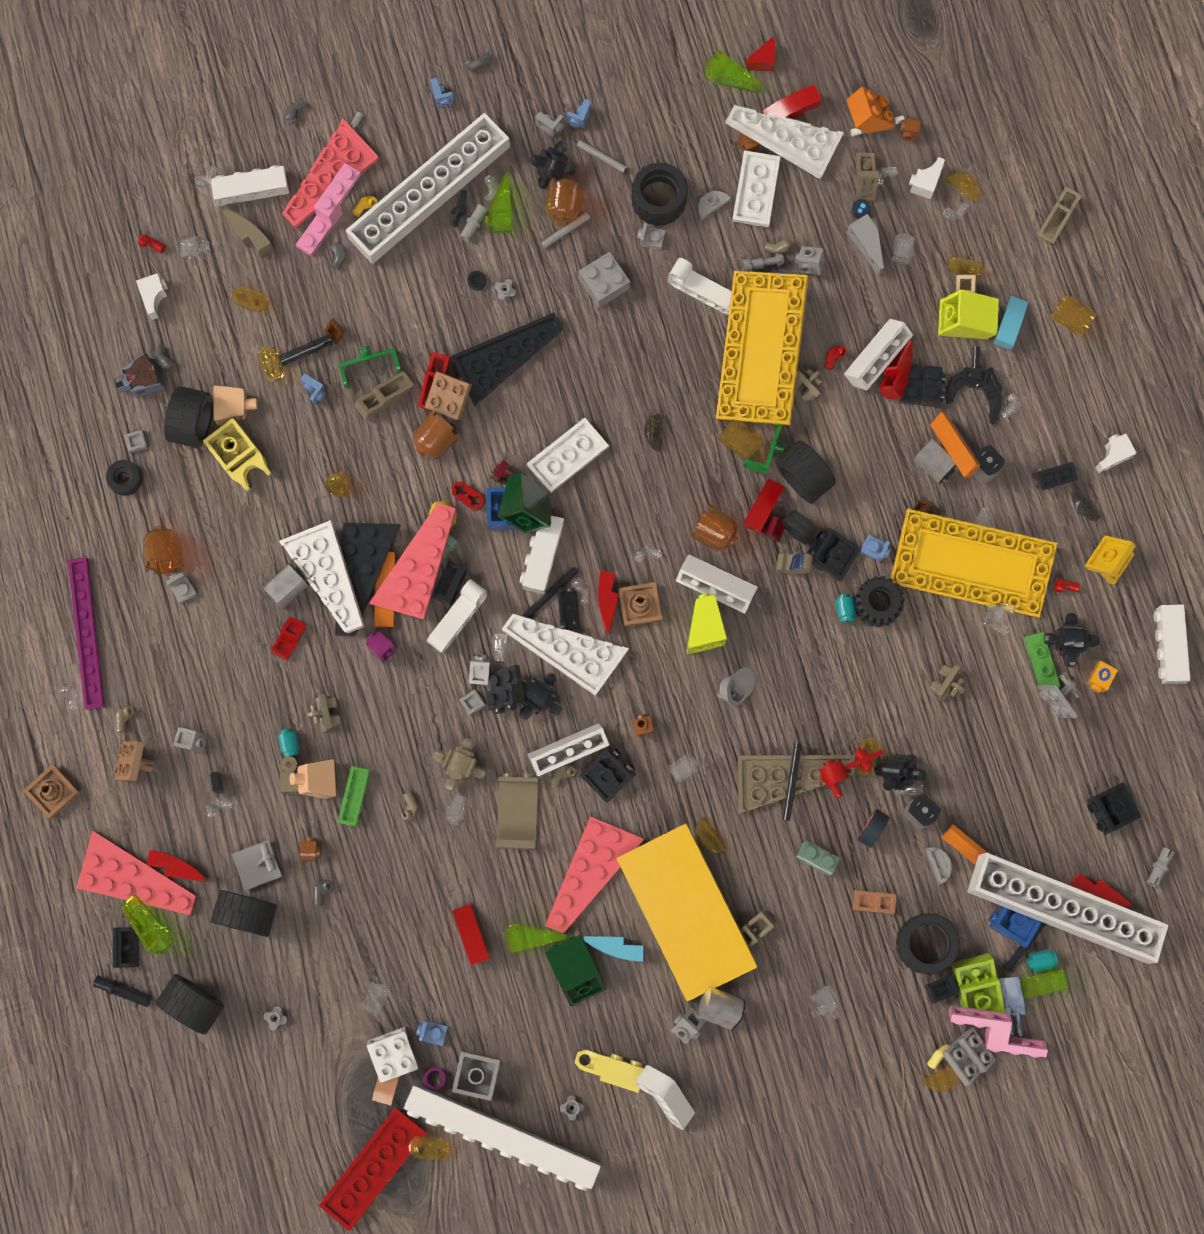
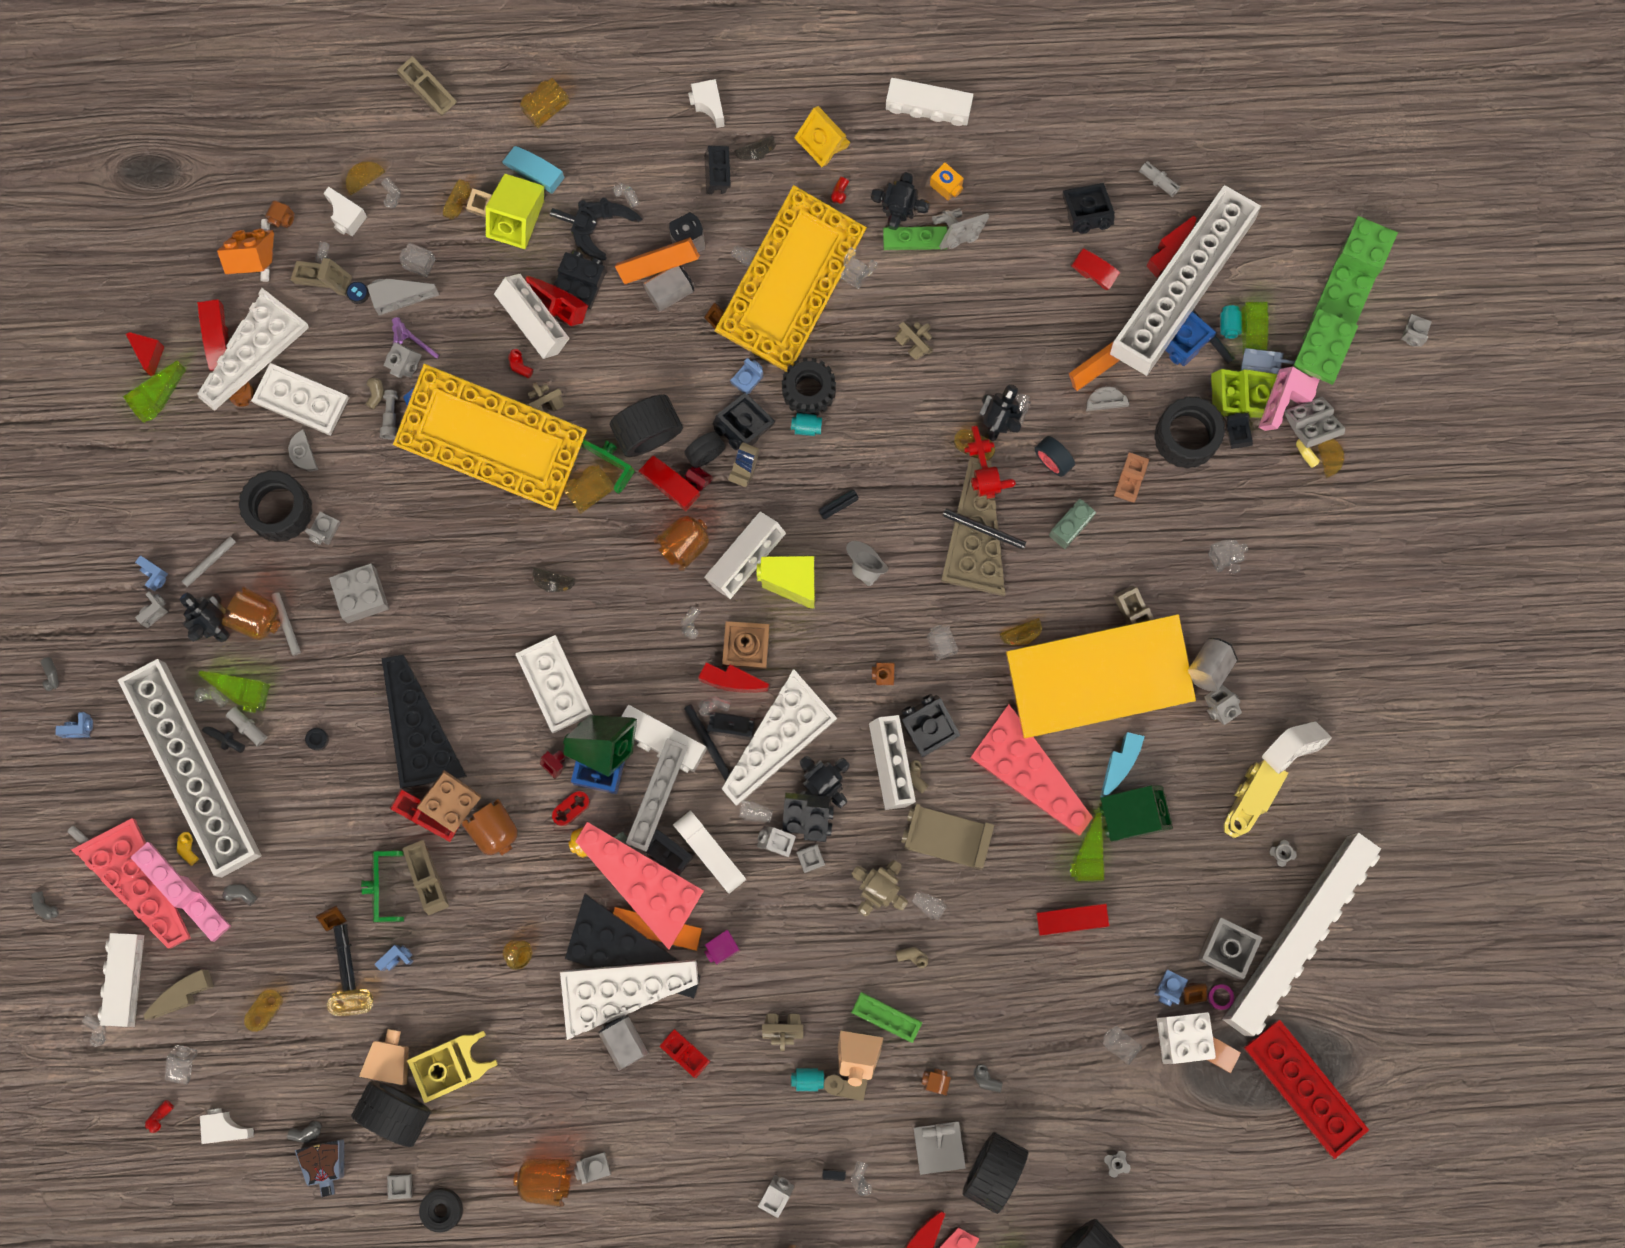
camera: 75 degrees left, 0 degrees up
(430, 1149) = (1297, 1018): clear yellow plate -> none
(432, 1054) = (1195, 993): none -> reddish brown slope
(493, 560) = (656, 794): none -> light grey plate
(510, 292) = (343, 709): light grey plate -> none
(699, 287) = (399, 488): white beam -> none
(783, 652) = (838, 504): none -> black axle
(835, 253) = (402, 333): none -> medium lavender plant
(922, 811) = (1049, 401): black piece -> none
(1058, 827) = (1096, 268): none -> red slope
(1082, 1135) = (1416, 331): none -> light grey bracket
(1090, 1059) = (1343, 299): none -> bright green bracket

